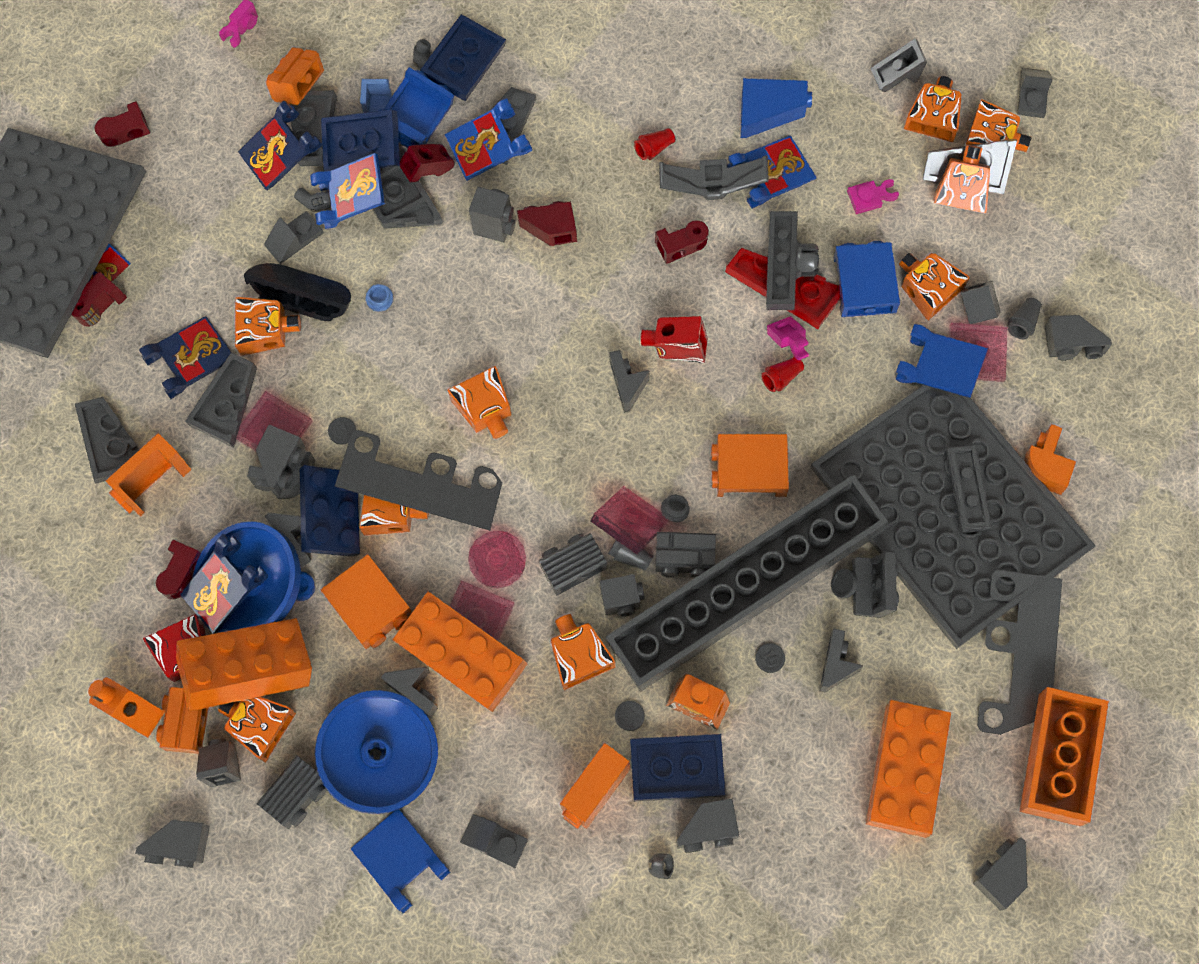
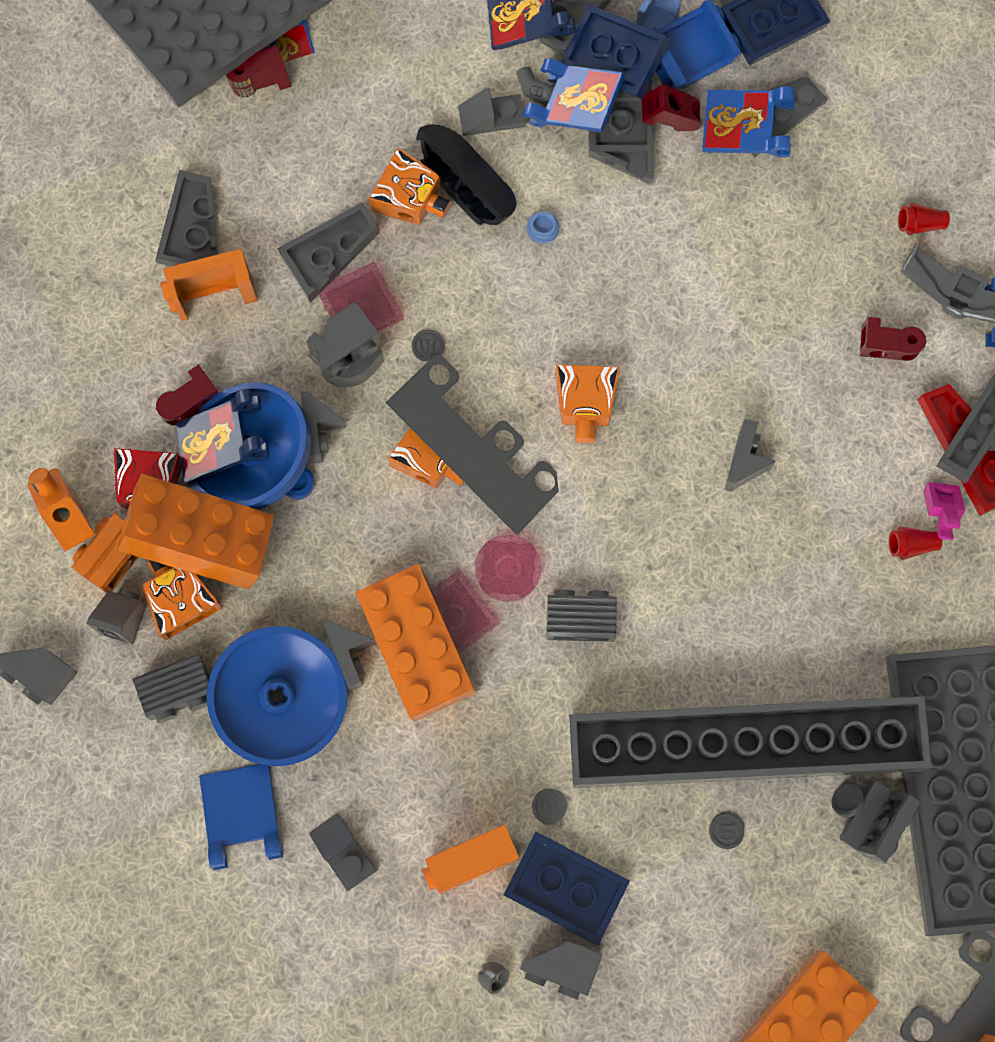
camera: 25 degrees right, 5 degrees up
(189, 355) = (320, 180): flag -> none
(327, 514) = (364, 425): dark blue plate -> none
(367, 602) = (353, 538): orange brick -> none
(492, 214) = (707, 203): dark grey brick -> none
(549, 223) = (762, 245): dark red slope -> none
(579, 652) = (534, 712): orange torso -> none
(621, 595) = (611, 679): dark grey brick -> none
(625, 555) = (646, 639): dark grey cone -> none
(629, 520) = (665, 606): clear pink tile -> none
(675, 508) = (719, 620): dark grey plate -> none
(678, 338) = (833, 450): red torso -> none
(684, 553) = (702, 674): dark grey brick -> none
(699, 700) = (627, 833): orange torso -> none
(751, 463) = (824, 619): orange panel -> none
(837, 670) = (785, 882): dark grey slope -> none

